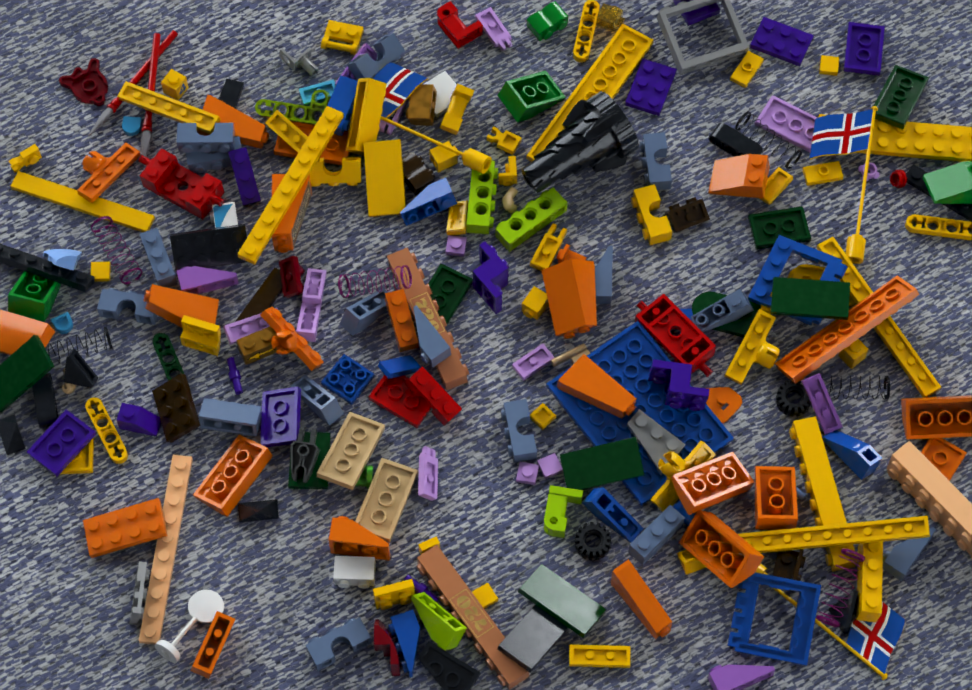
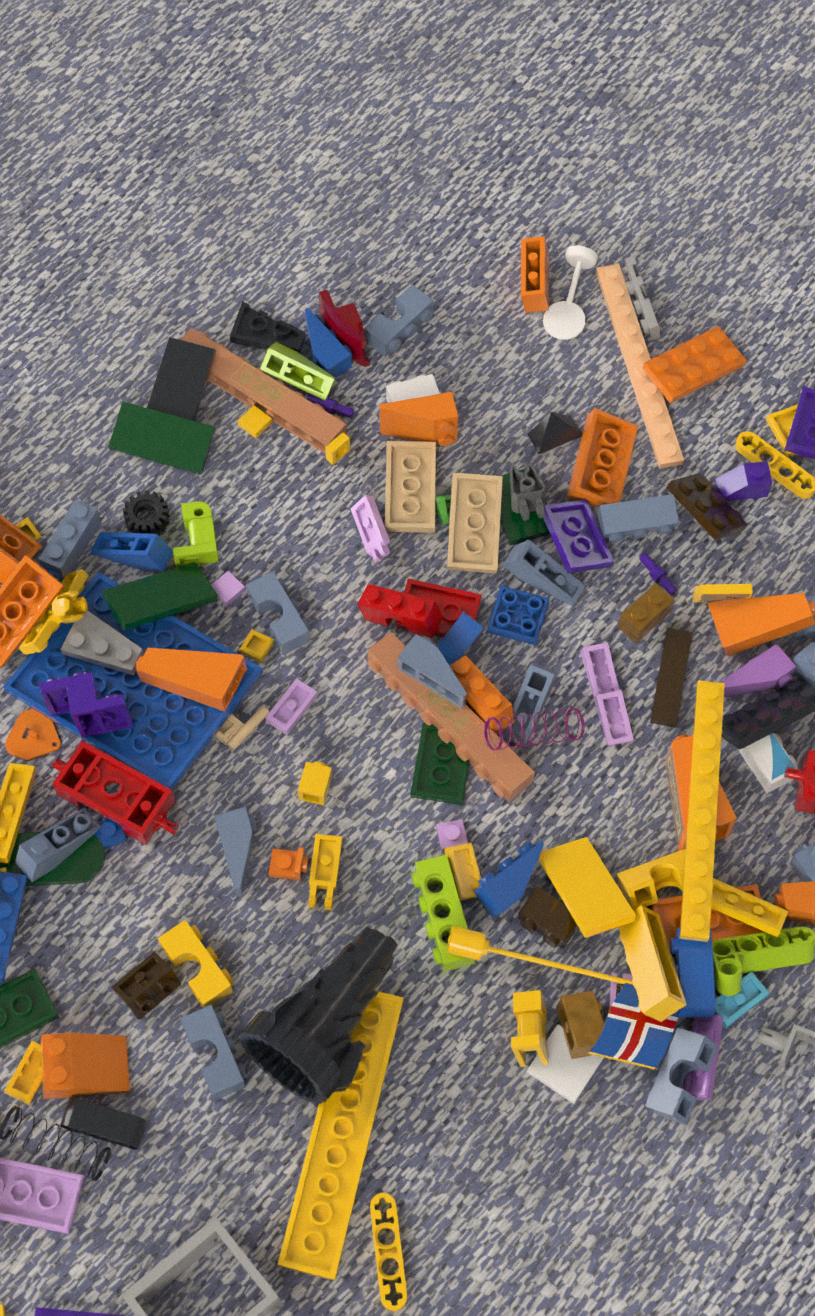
camera: 160 degrees right, 0 degrees up
(171, 366) = (744, 558): dark green beam -> none
(244, 176) = (777, 830): dark purple plate -> none
(244, 328) = (663, 631): lavender plate -> none
(288, 340) = (609, 622): orange plate -> none
(291, 276) = (643, 704): dark red tile -> none
(342, 32) = (749, 1118): yellow plate -> none
(393, 594) = (356, 377): yellow plate -> none
(442, 157) = (516, 967): yellow brick -> none
(455, 28) = (590, 1181): red piece -> none
(490, 277) = (384, 789): dark purple bracket -> none
(494, 29) = (529, 1201): lavender hinge -> none
(505, 141) = (439, 1014): yellow plate -> none
(507, 200) = (406, 923): tan arm -> none
(510, 175) = (417, 969): yellow bracket -> none
(513, 238) = (379, 864): lime brick -> none
(527, 473) = (251, 569): lavender plate -> none
(530, 95) = (430, 1102): green slope -> none
(547, 21) = (452, 1243): green brick -> none
(571, 296) = (267, 796): orange slope -> none
(599, 656) = (100, 396): yellow plate -> none
(610, 18) = (356, 1284): clear yellow brick -> none
(640, 599) = (70, 461): orange slope -> none
(650, 87) = (258, 1185): dark purple plate -> none
(746, 69) = (118, 1268): yellow plate -> none

